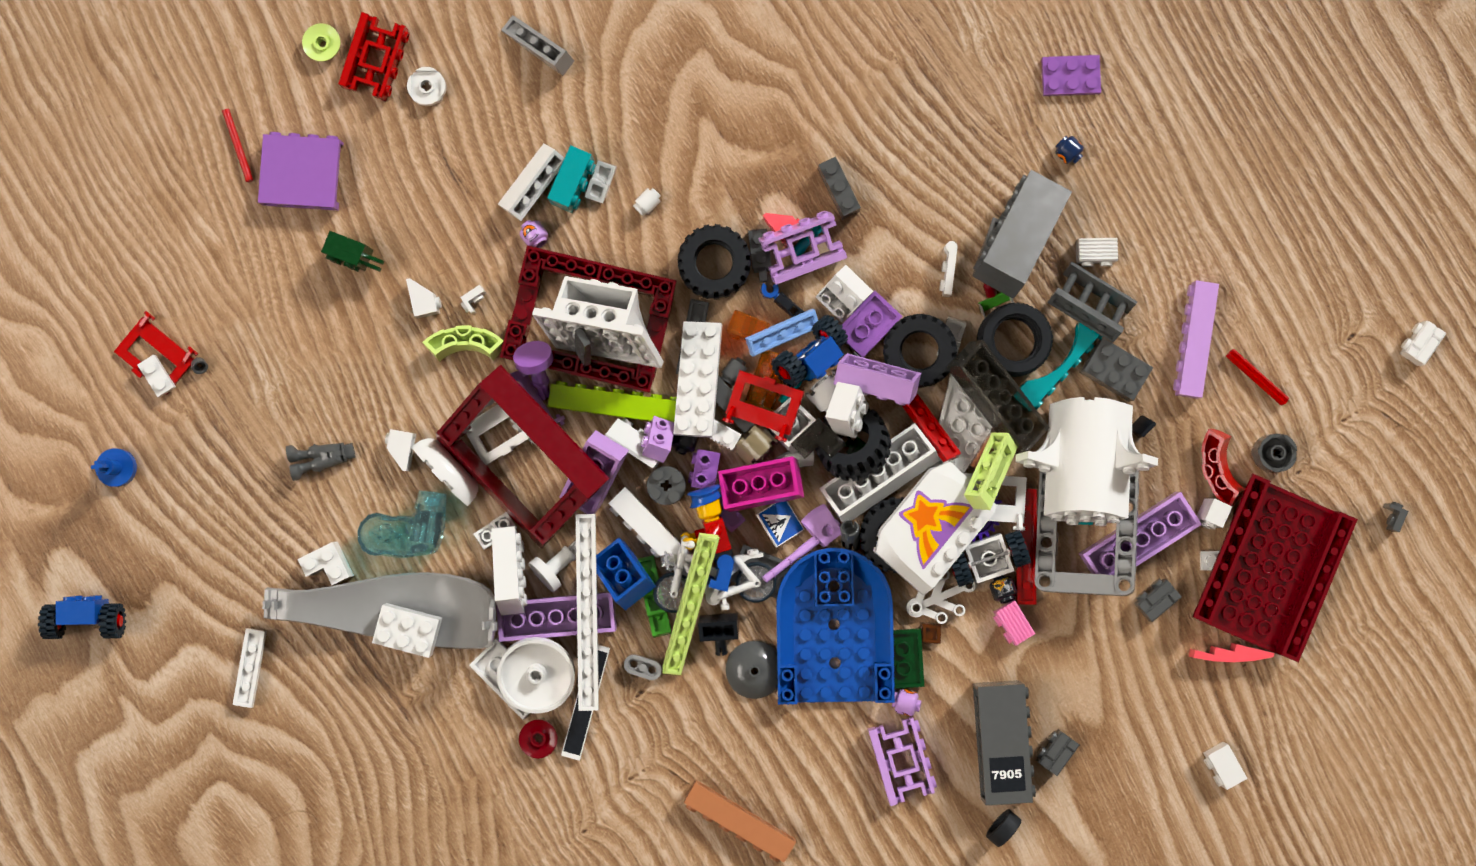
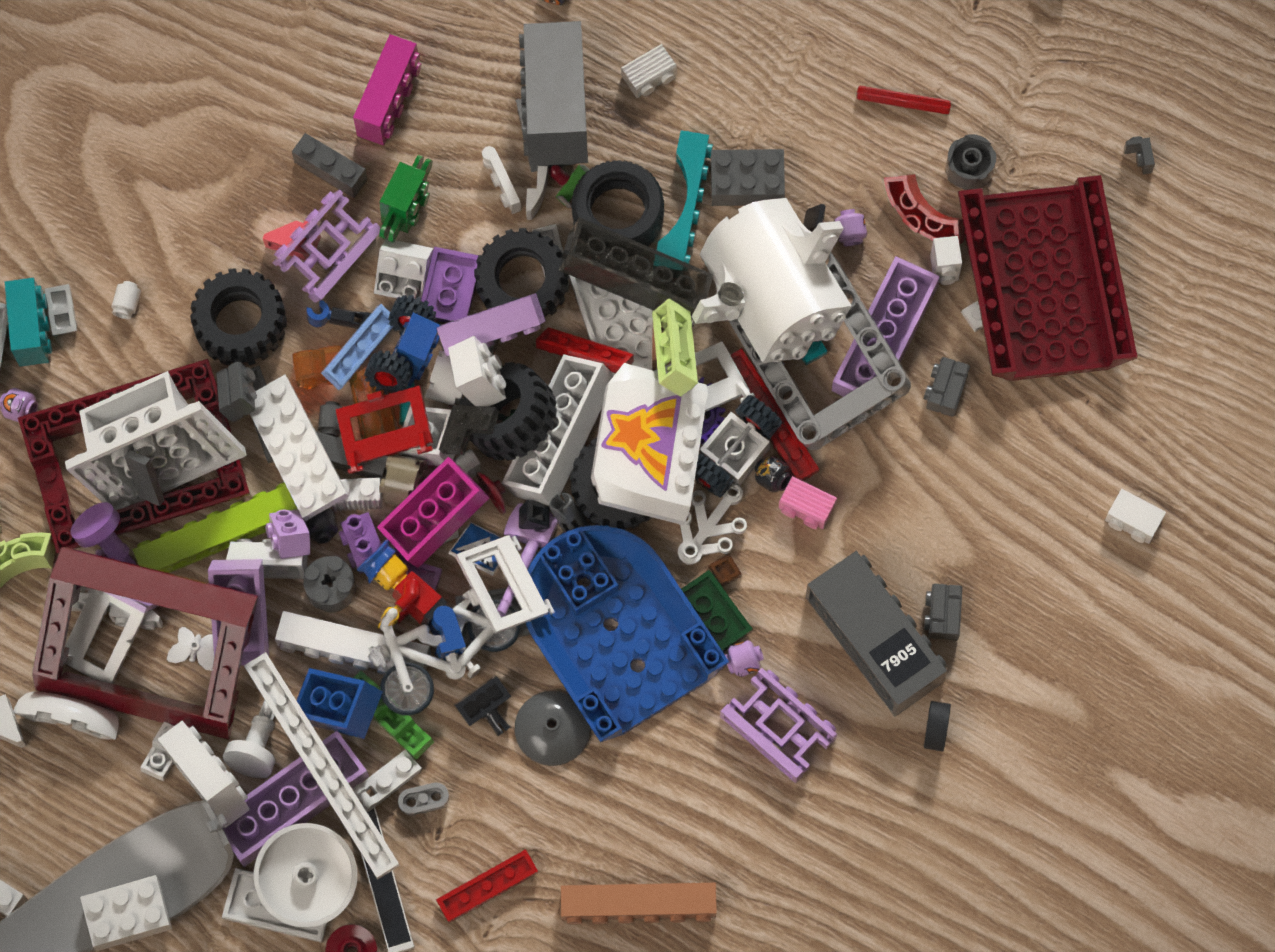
camera: 35 degrees left, 15 degrees down
(406, 535) = (61, 811): clear light blue piece -> none
(555, 473) = (195, 646): none -> white piece
(626, 640) = (387, 780): none -> white plate
(649, 749) = (487, 886): none -> red plate
(681, 315) = (236, 391): none -> dark grey brick
(690, 603) = (433, 688): yellowish green tile -> none
(760, 259) = (286, 283): dark grey hinge -> none
(790, 561) = (517, 577): none -> white piece
(804, 243) = (327, 243): teal piece -> none
(812, 489) = (493, 490): none -> dark red dish
(827, 522) = (533, 515): none -> black slope
(874, 244) = (404, 198): none -> green brick
(909, 157) = (387, 90): none -> dark pink brick
(963, 295) = (536, 196): none -> white slope
(1051, 457) = (730, 294): none -> clear smoke tile
(1085, 314) = (676, 135): dark grey fence -> none
(1163, 448) = (854, 227): none -> lavender head
(1196, 339) = (813, 99): lavender brick -> none
(1237, 653) = (1070, 391): coral slope -> none

